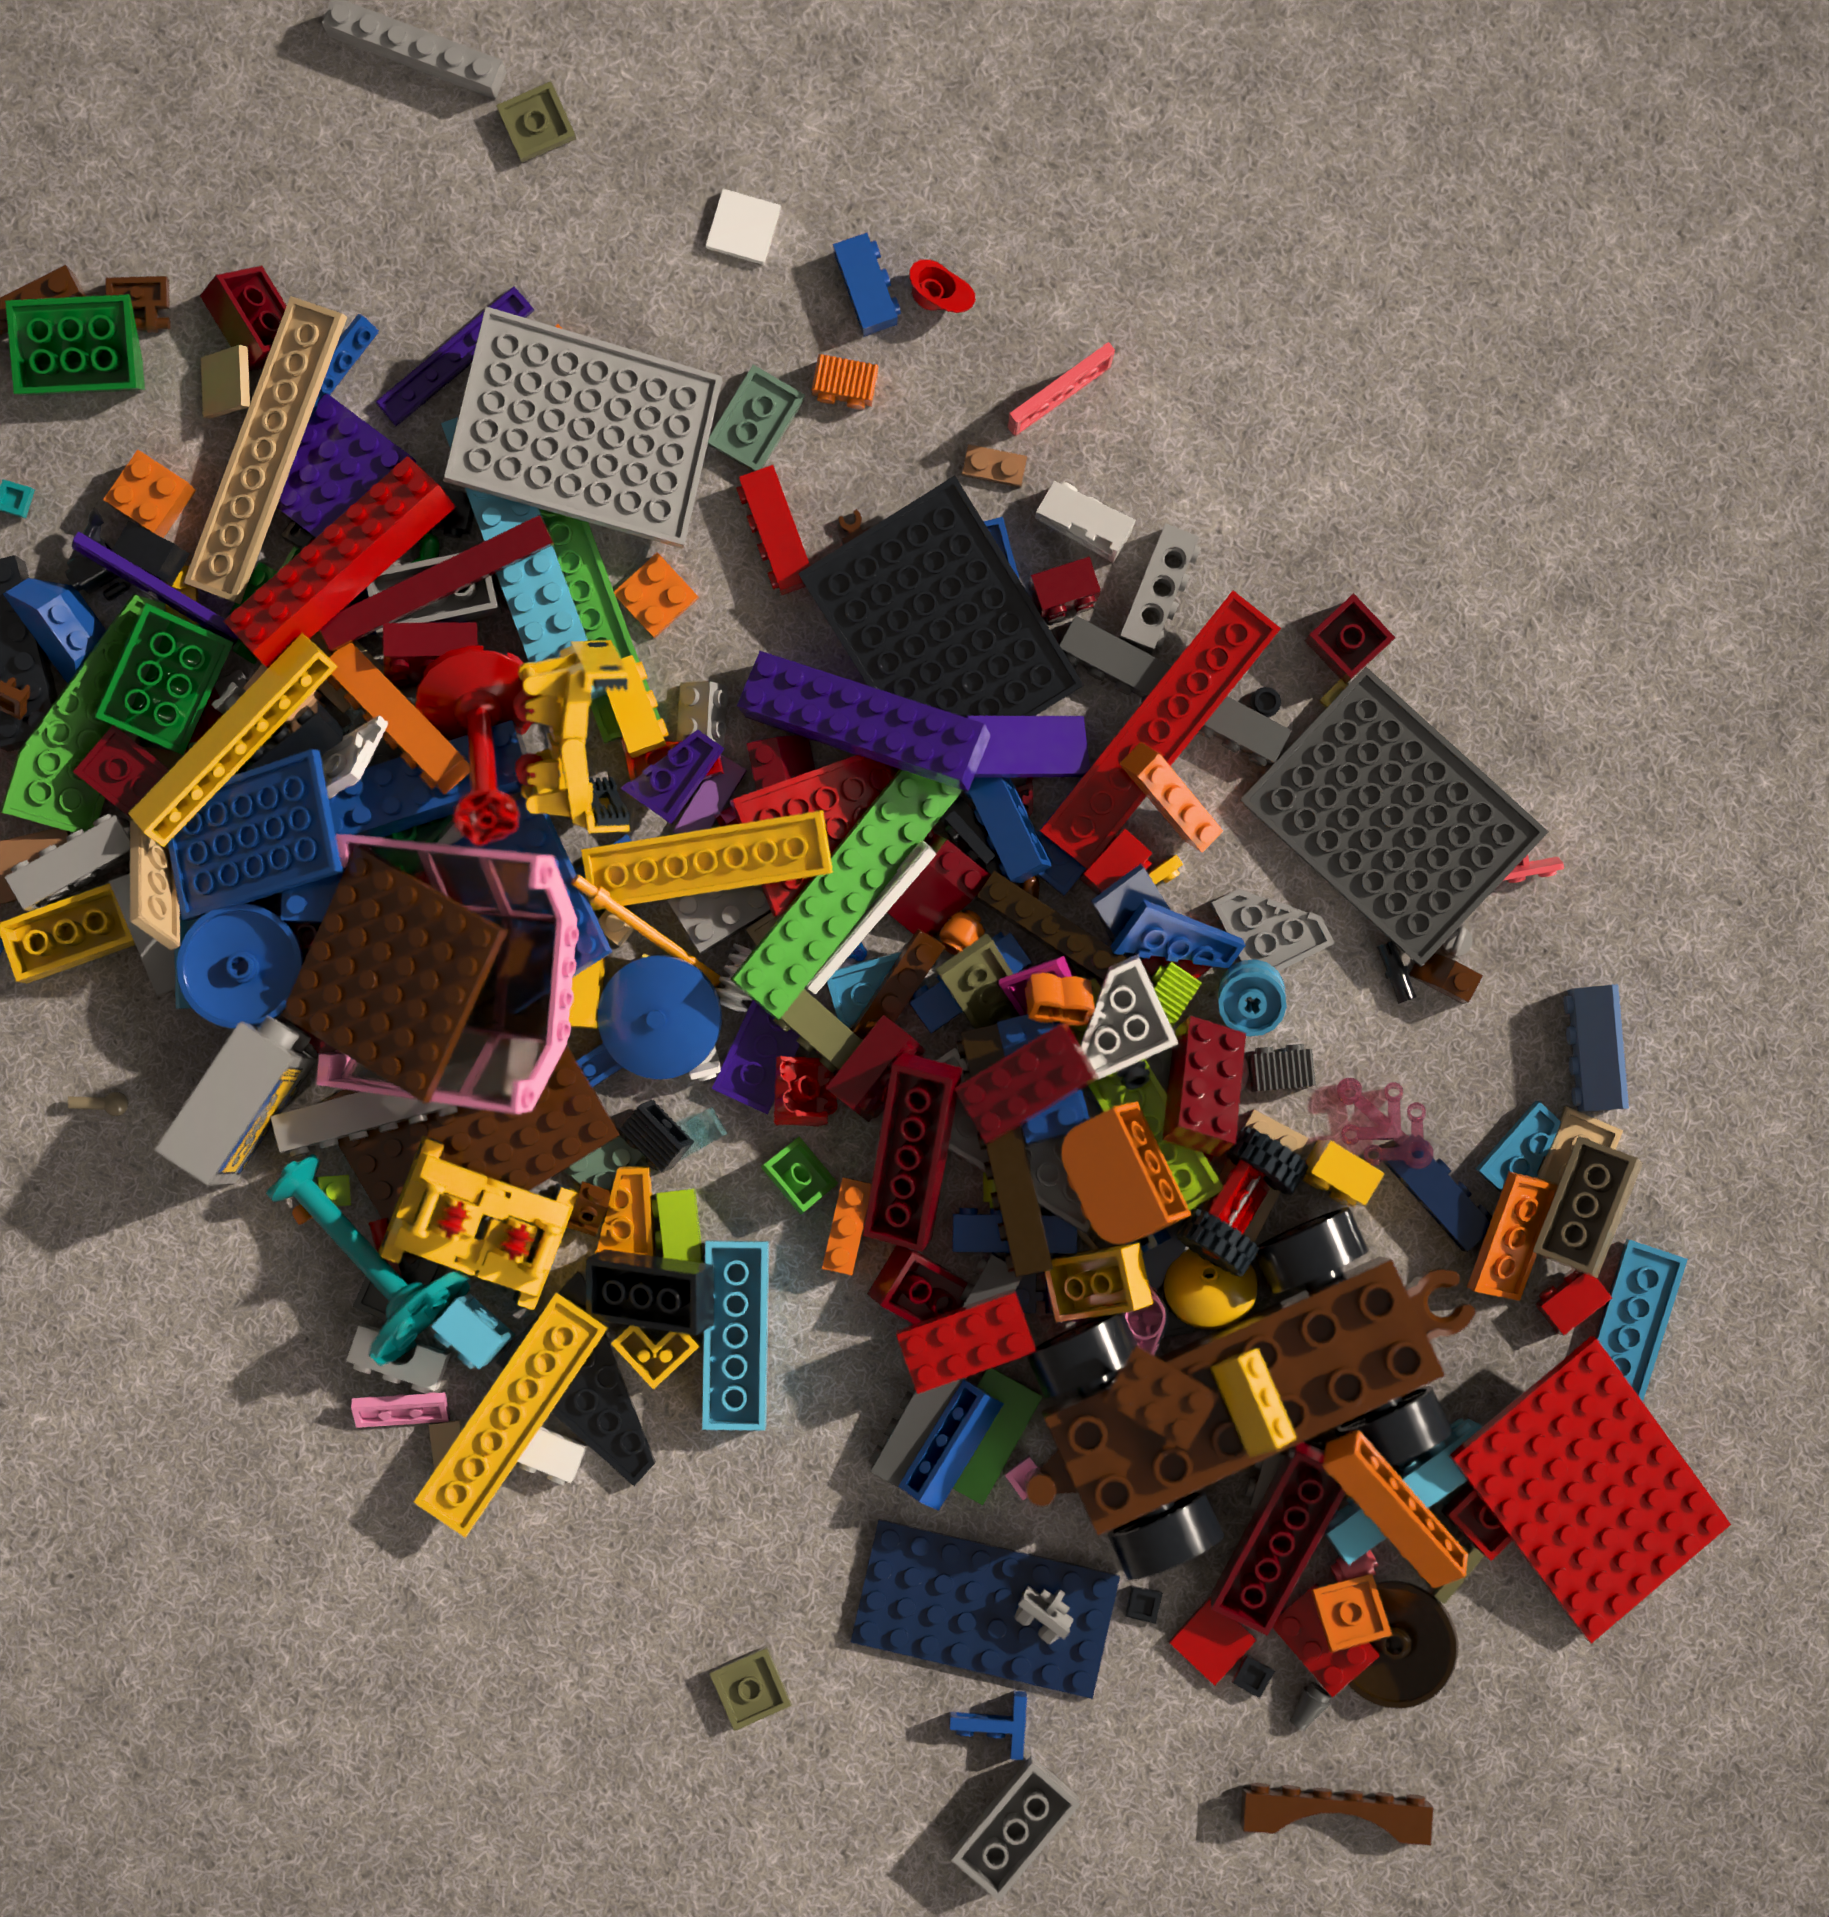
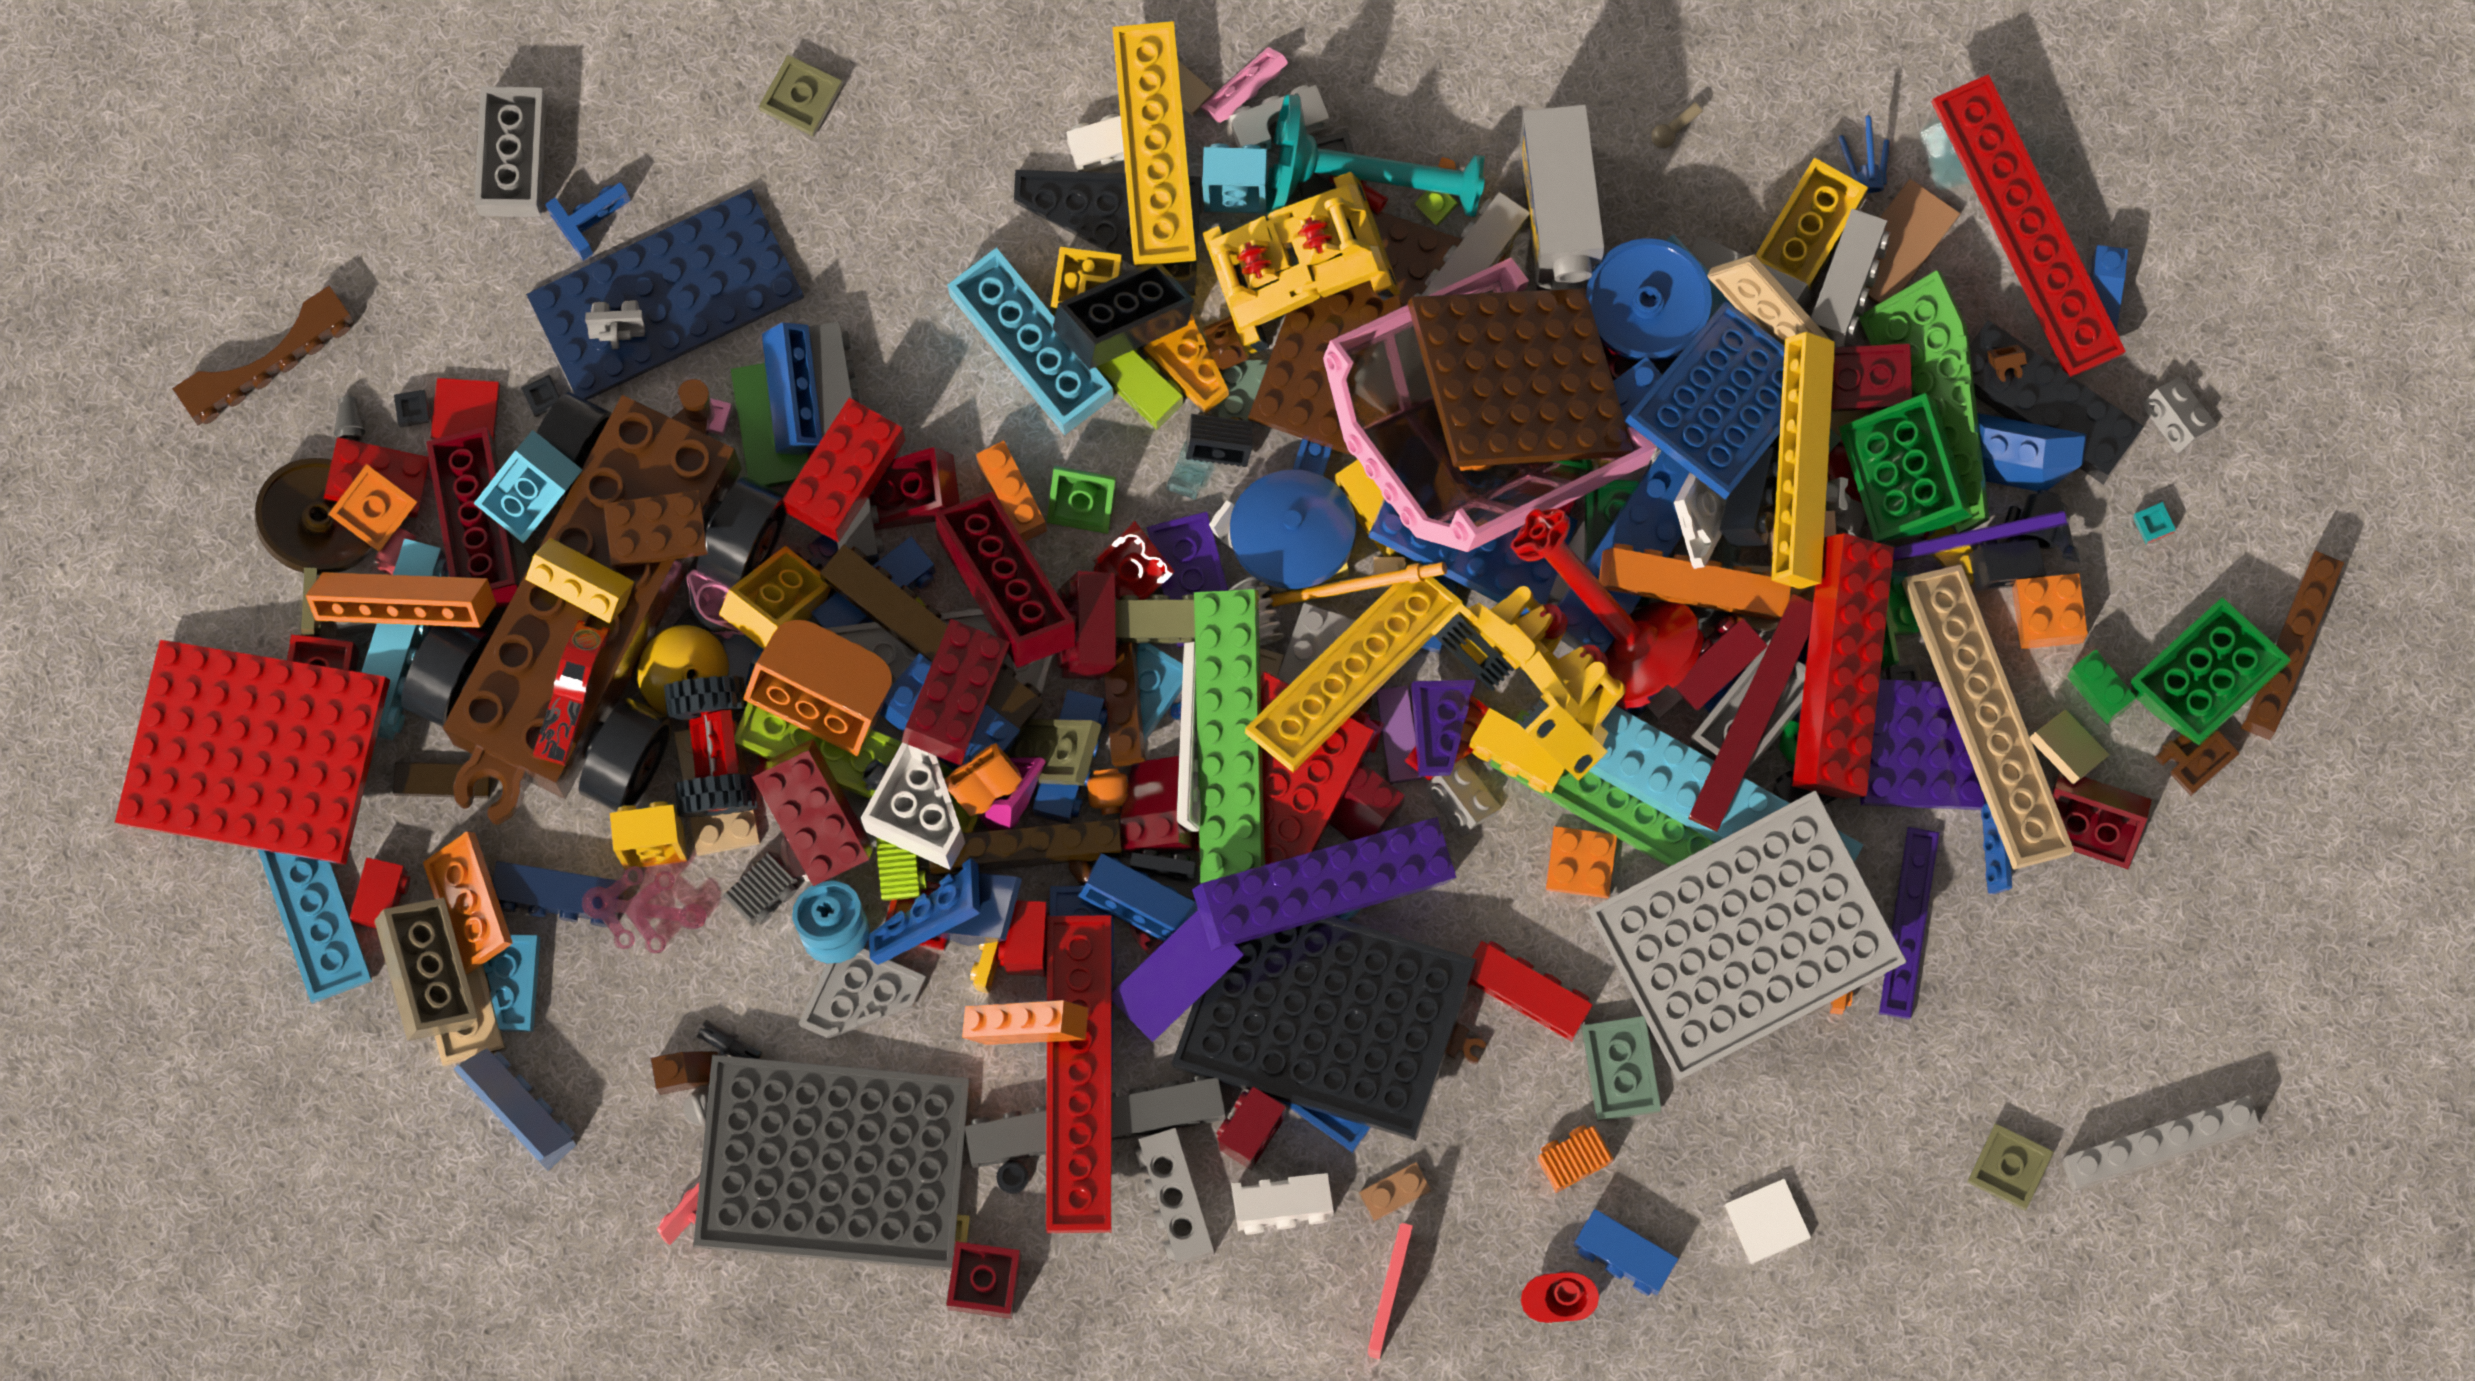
camera: 150 degrees right, 10 degrees down
(162, 407) = (2101, 687): none -> green brick
(1227, 1521) = (528, 486): none -> medium azure brick
(1330, 1317) = (569, 693): none -> piece
(1465, 1363) = (432, 780): none -> dark brown tile

